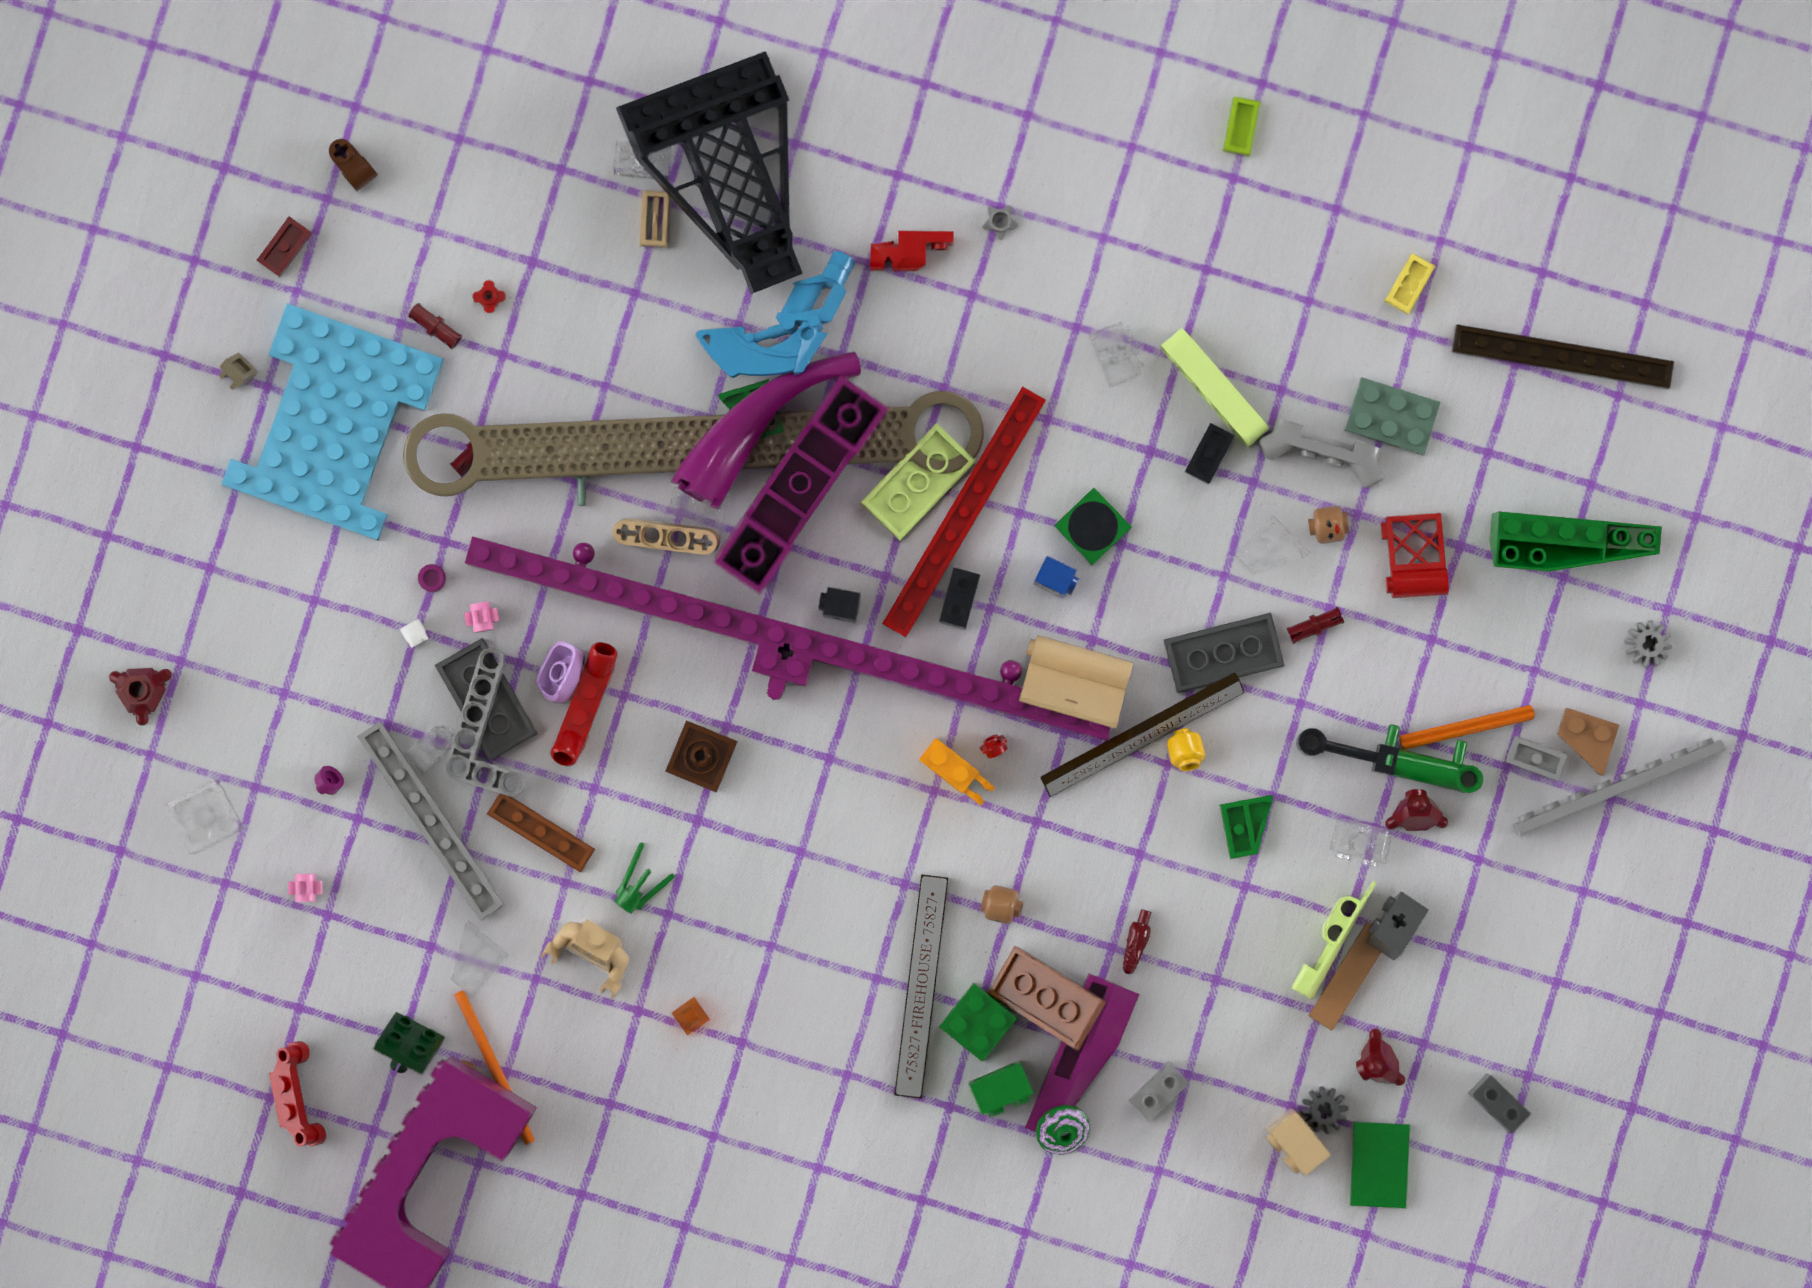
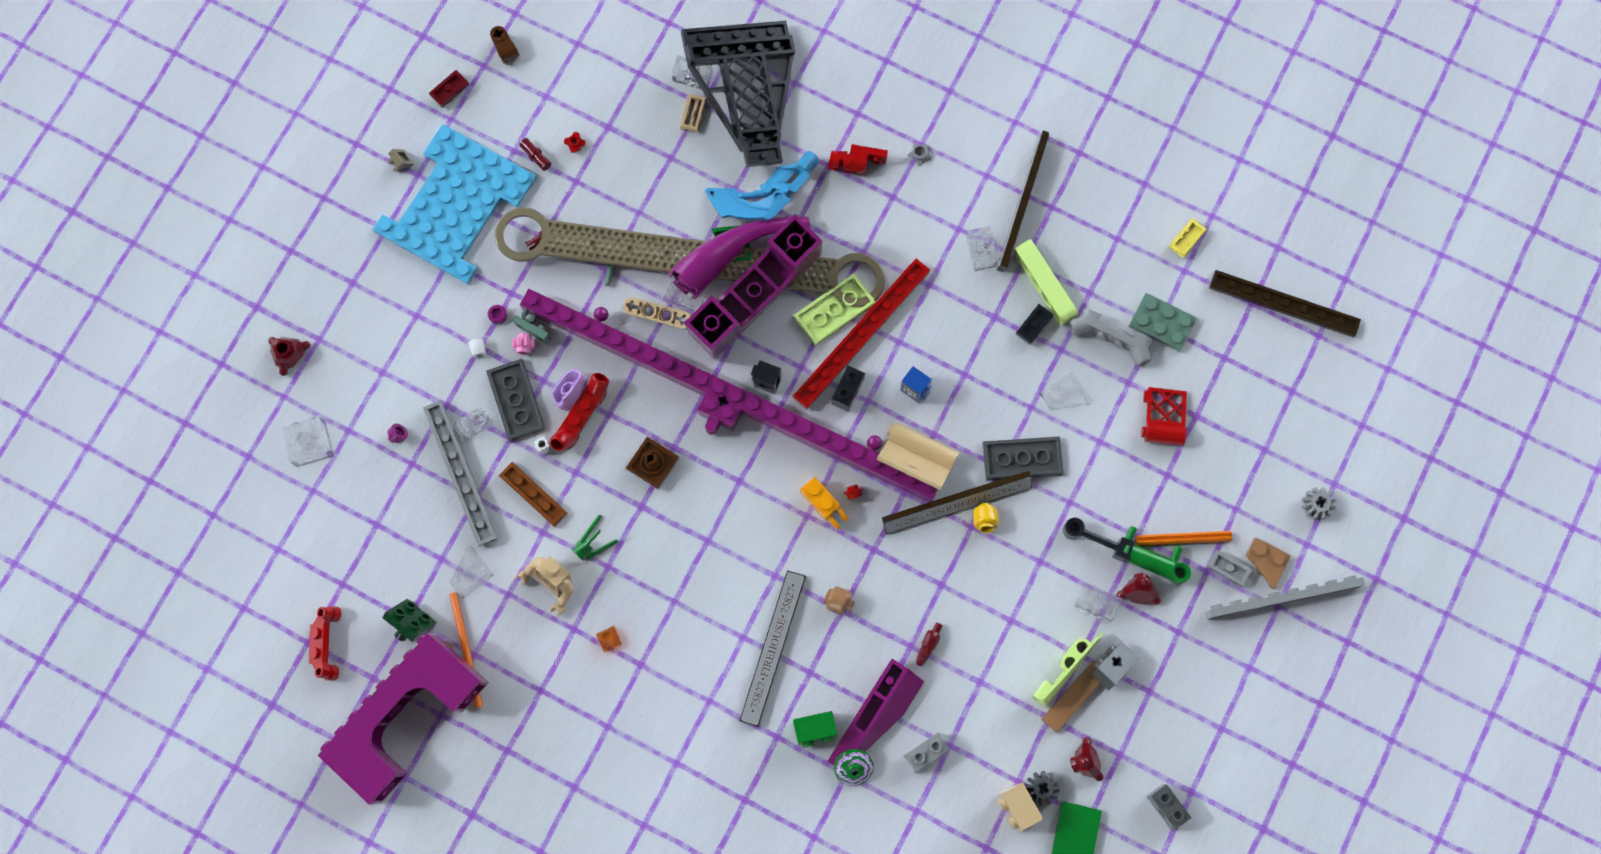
camera: 15 degrees right, 10 degrees down
(305, 887) = (364, 501): bright pink gear -> none
(478, 728) = (505, 415): light grey beam -> none
(500, 594) = (528, 326): none -> sand green plate
(547, 763) = (546, 449): none -> white hose
(977, 1022) = (807, 679): green brick -> none
(1046, 997) = (859, 670): tile -> none
(1092, 526) = (947, 358): black tile -> none
(1163, 270) = (1023, 201): none -> dark brown tile
(1241, 126) = (1090, 121): lime tile -> none
(1244, 825) = (1018, 576): green wing -> none
(1315, 625) = (1088, 450): dark red pin -> none
(1329, 524) = (1109, 384): medium nougat head -> none
(1566, 543) = (1271, 423): green wedge -> none

